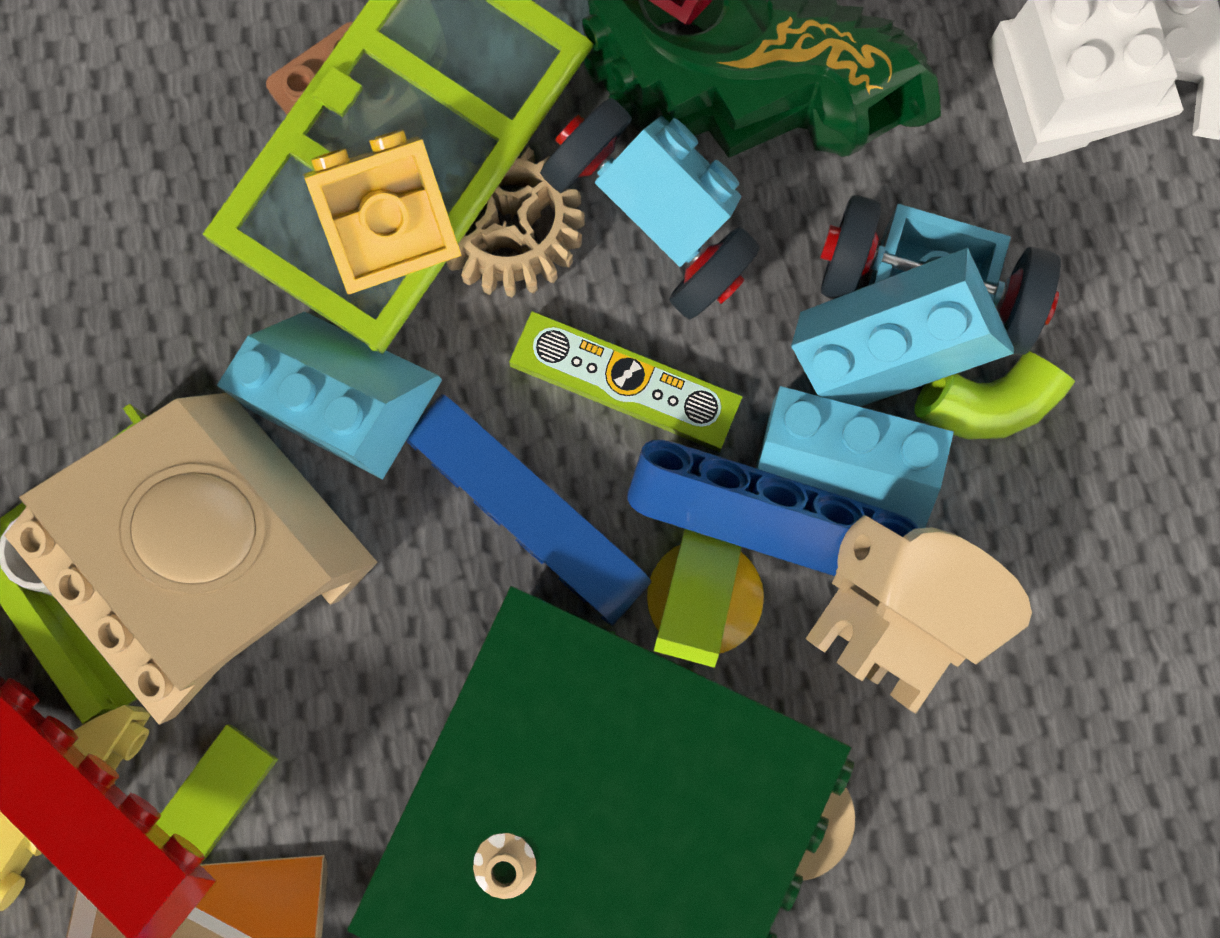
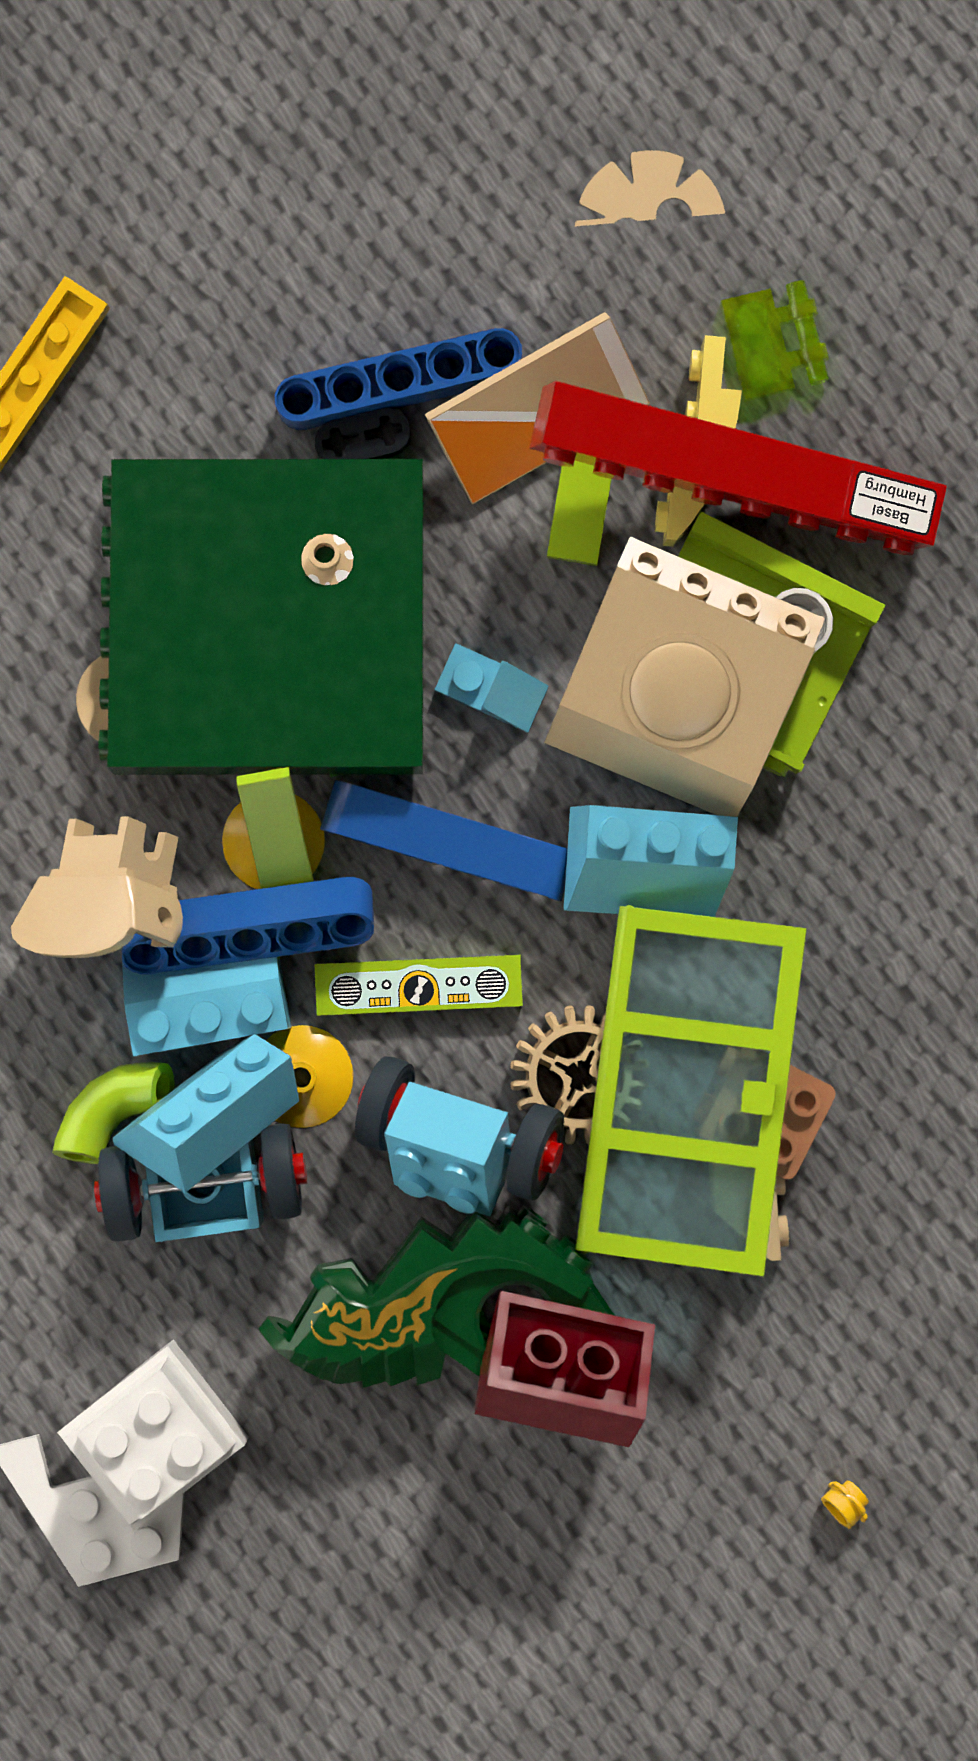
camera: 145 degrees right, 10 degrees up
(381, 211) = (668, 1011): yellow plate -> none
(403, 648) = (491, 687): none -> medium azure slope
(754, 351) = (329, 1071): none -> yellow dish

